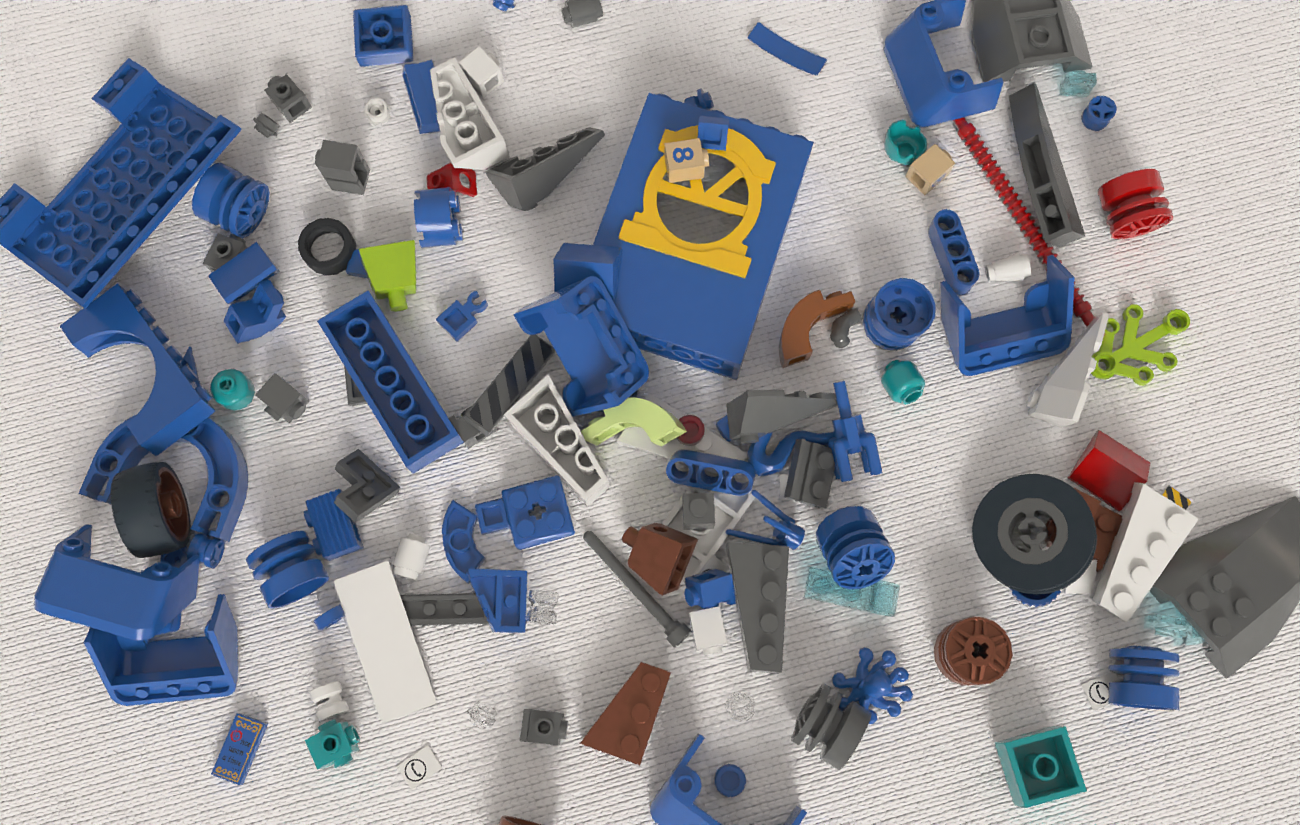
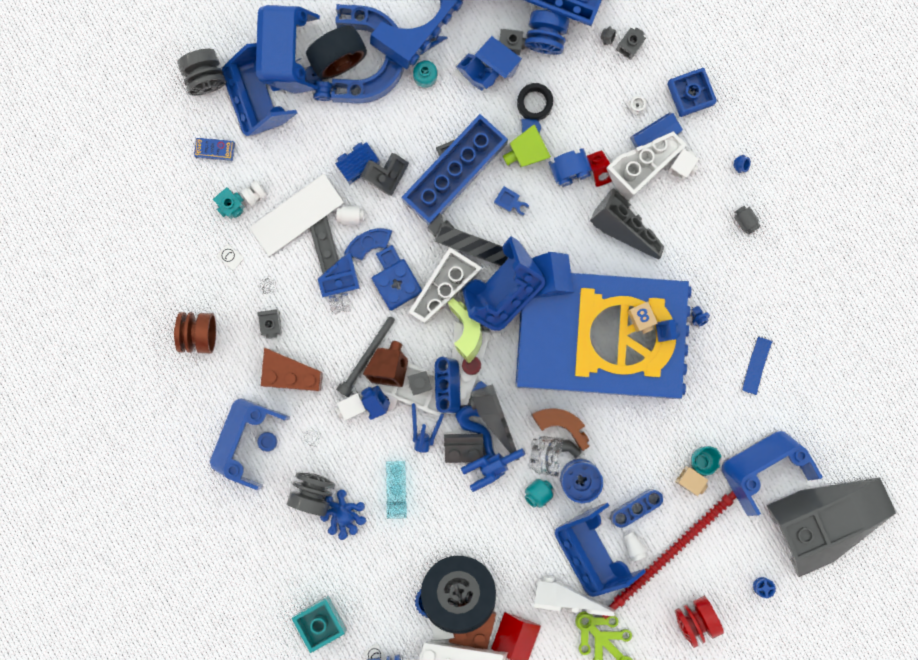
camera: 70 degrees right, 10 degrees up
(106, 736) = (201, 71): none -> dark grey wheel
(282, 399) = (427, 106): dark grey brick -> none
(287, 569) = (322, 144): blue wheel -> none
(329, 617) = (301, 178): blue tile -> none
(342, 167) = (588, 96): dark grey piece -> none
(760, 597) = (379, 434): dark grey wedge -> none
(849, 357) = (545, 455): none -> clear cylinder
(855, 547) = (421, 484): blue wheel -> none
(955, 648) = (376, 559): copper wheel -> none
(1044, 169) = (711, 556): dark grey slope -> none
(1078, 84) = (782, 569): clear light blue plate -> none

